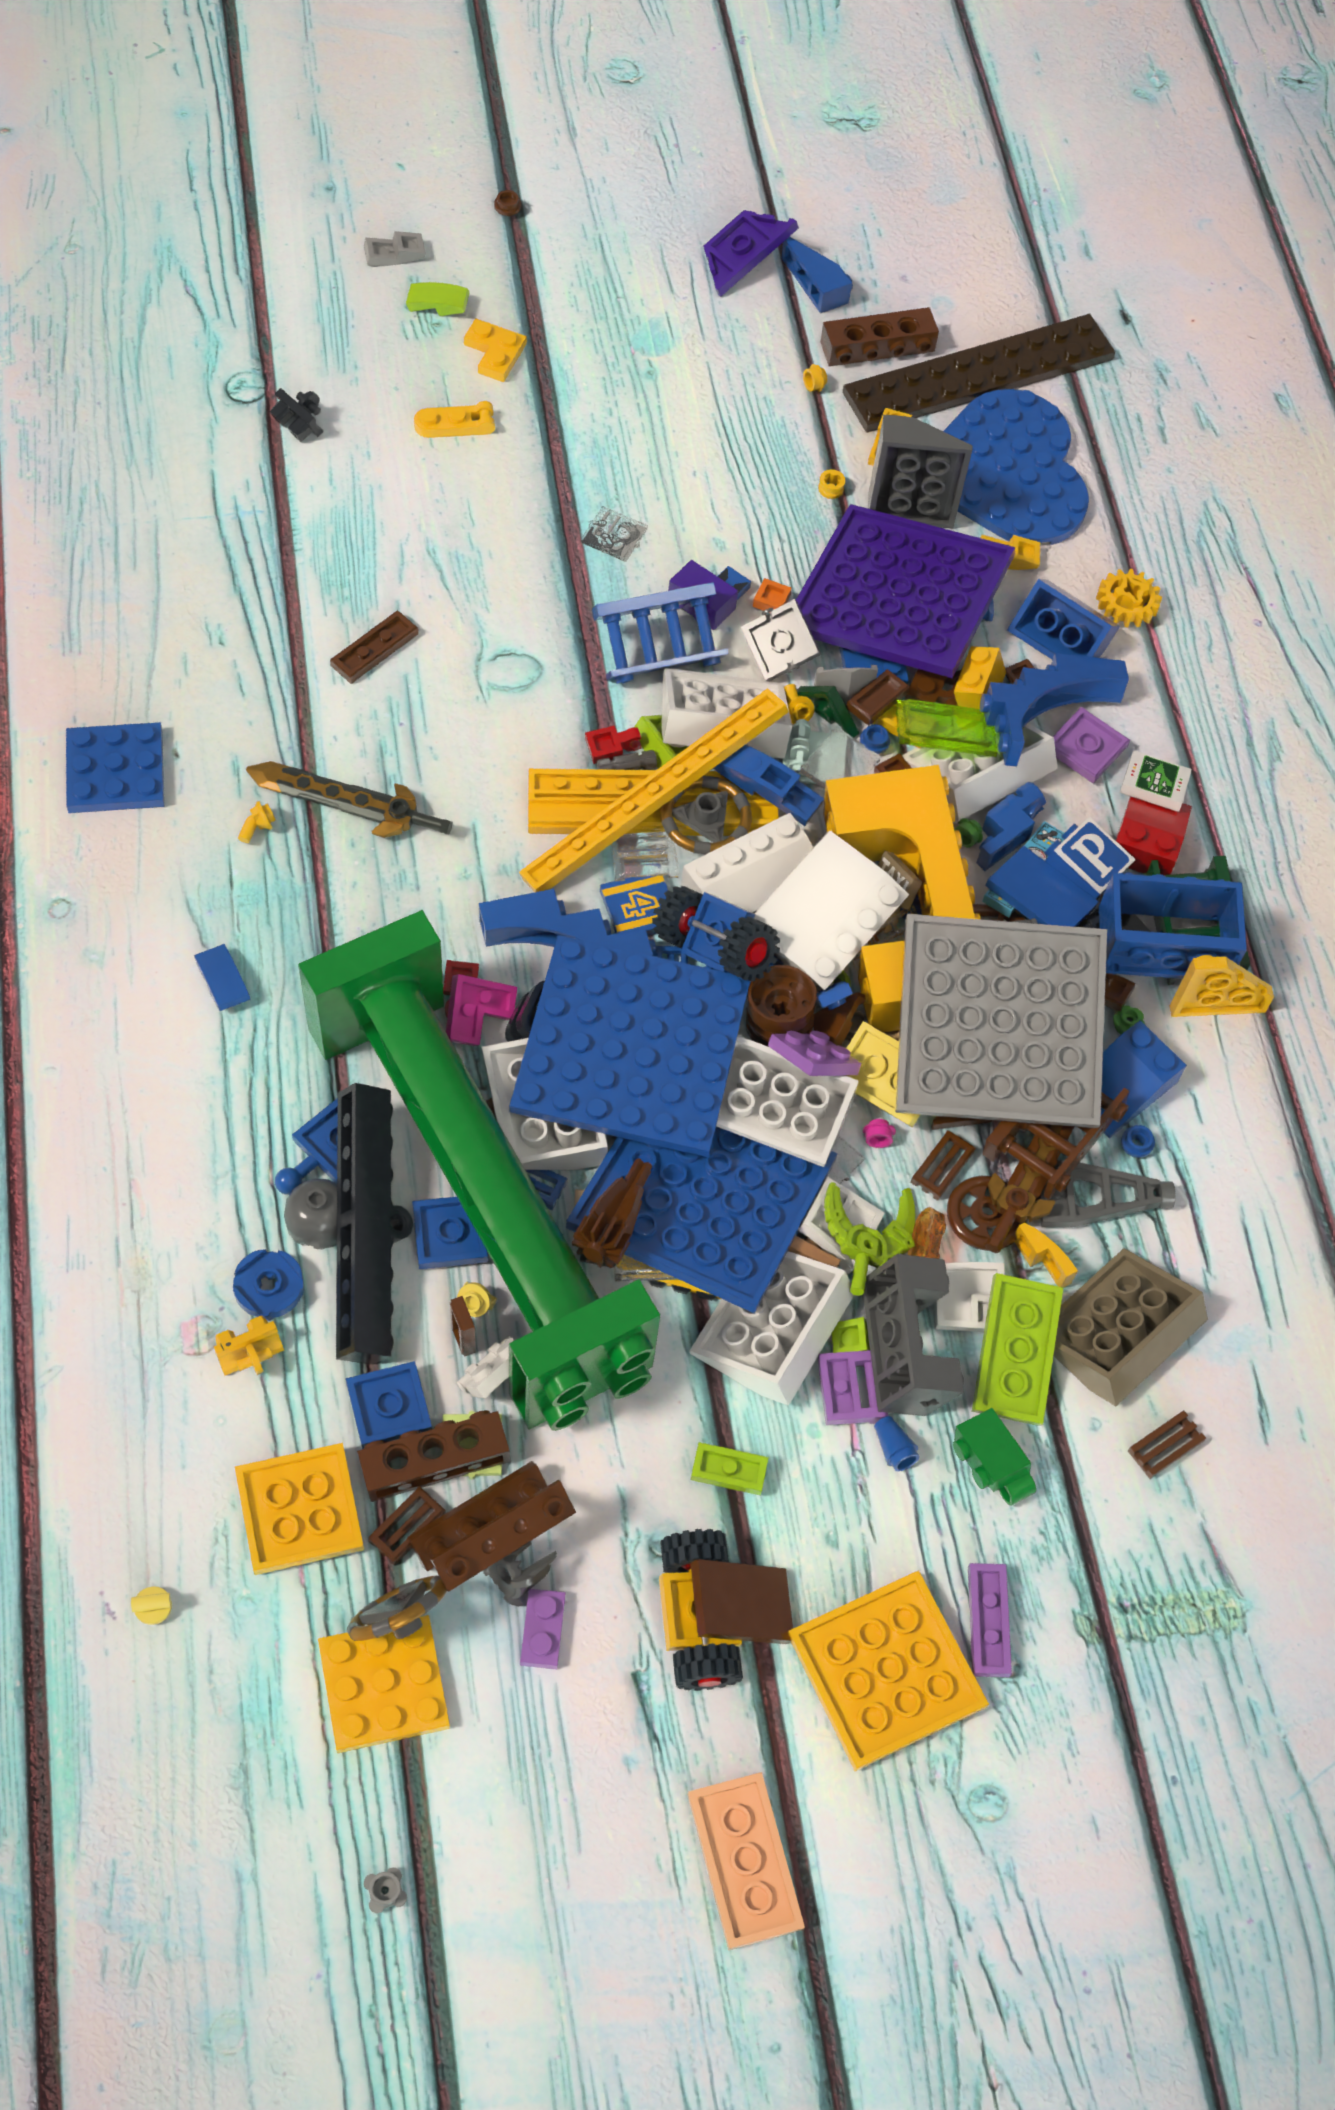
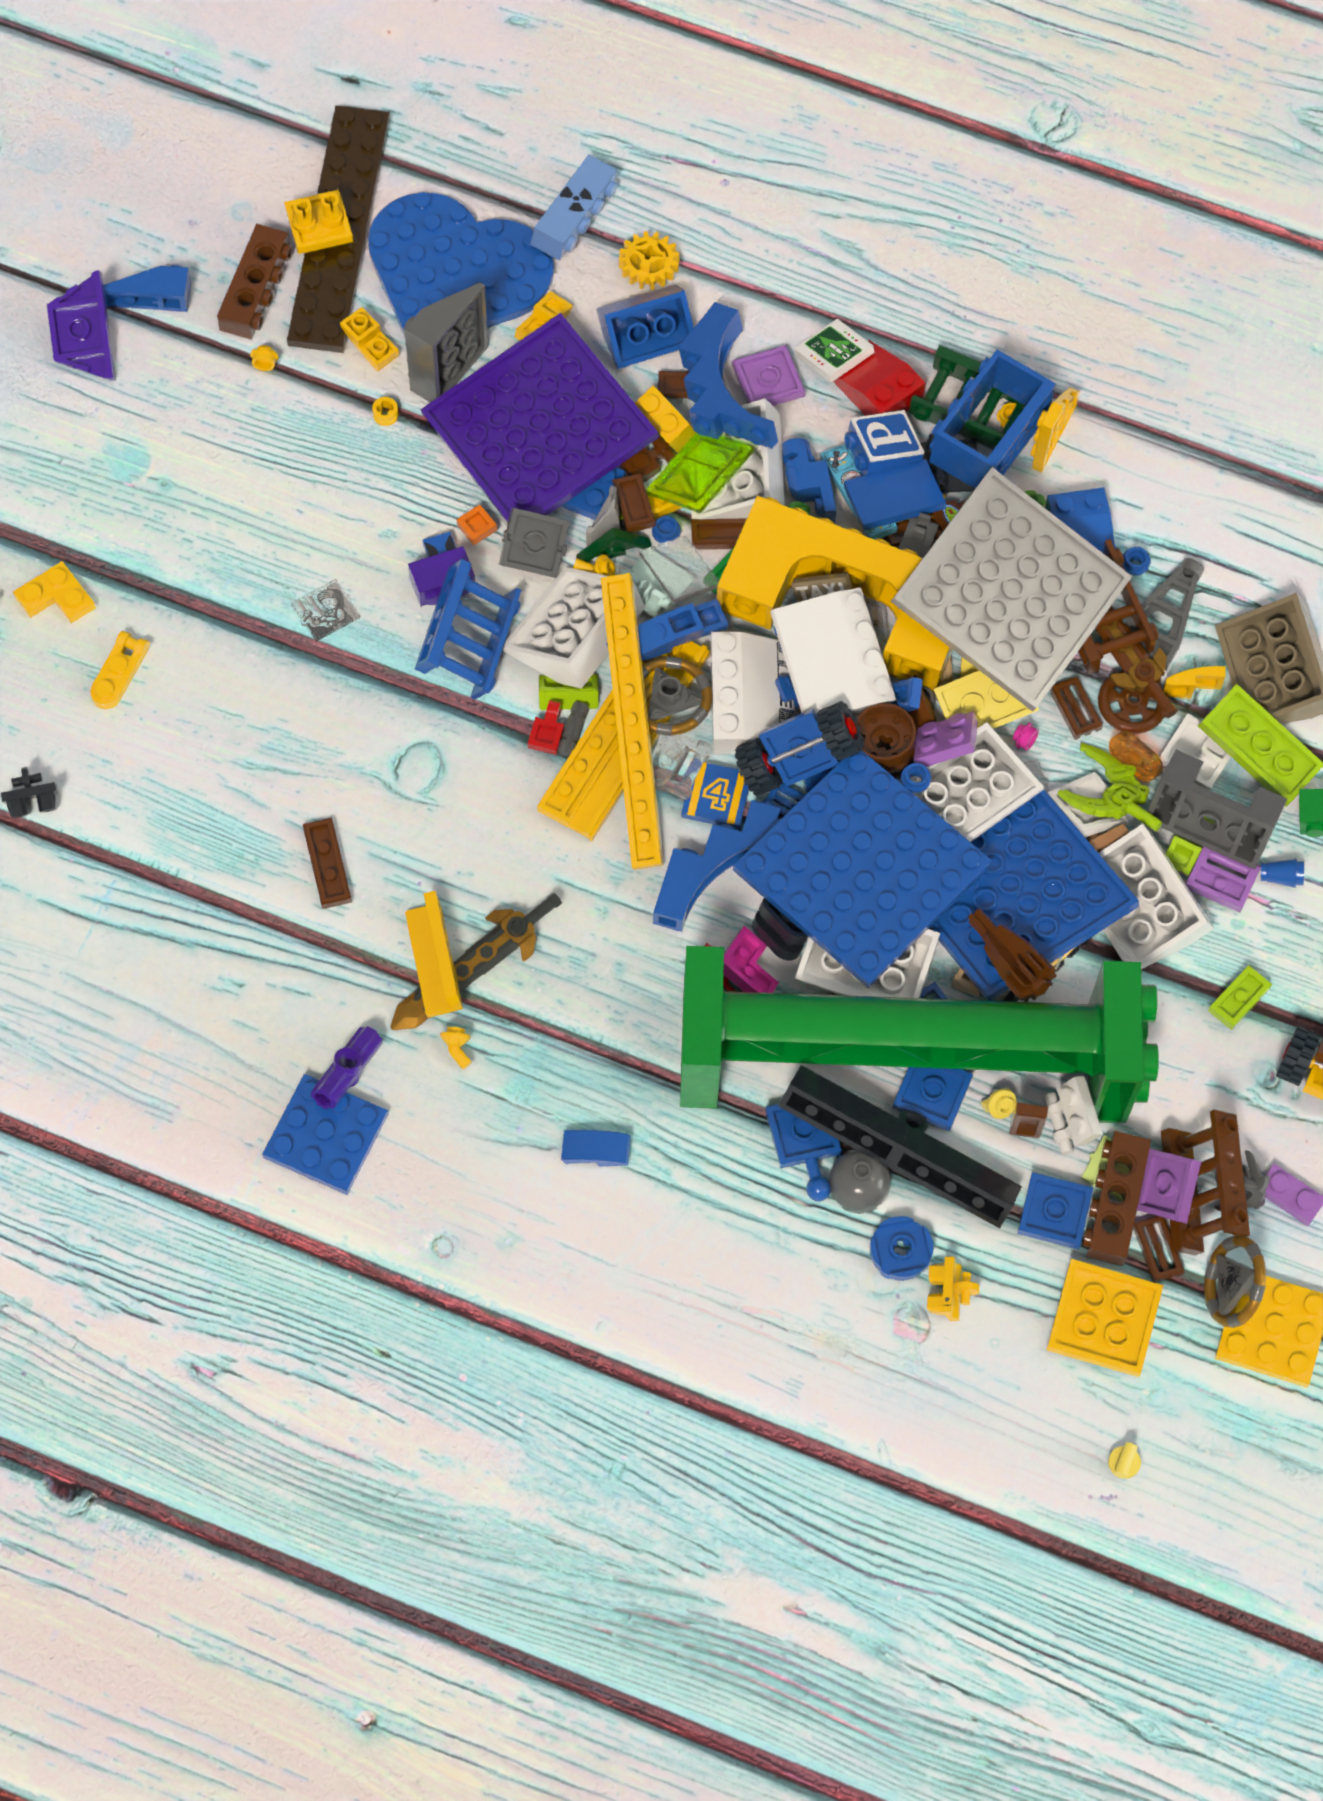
camera: 55 degrees left, 5 degrees up
(179, 745) = (338, 1078): none -> dark purple piece
(331, 762) = (433, 957): none -> yellow panel
(467, 1491) = (1168, 1185): none -> medium lavender plate
(756, 1037) = (920, 771): none -> blue plate
(965, 345) = (318, 222): none -> yellow plate
(1131, 515) = (574, 207): none -> medium blue brick

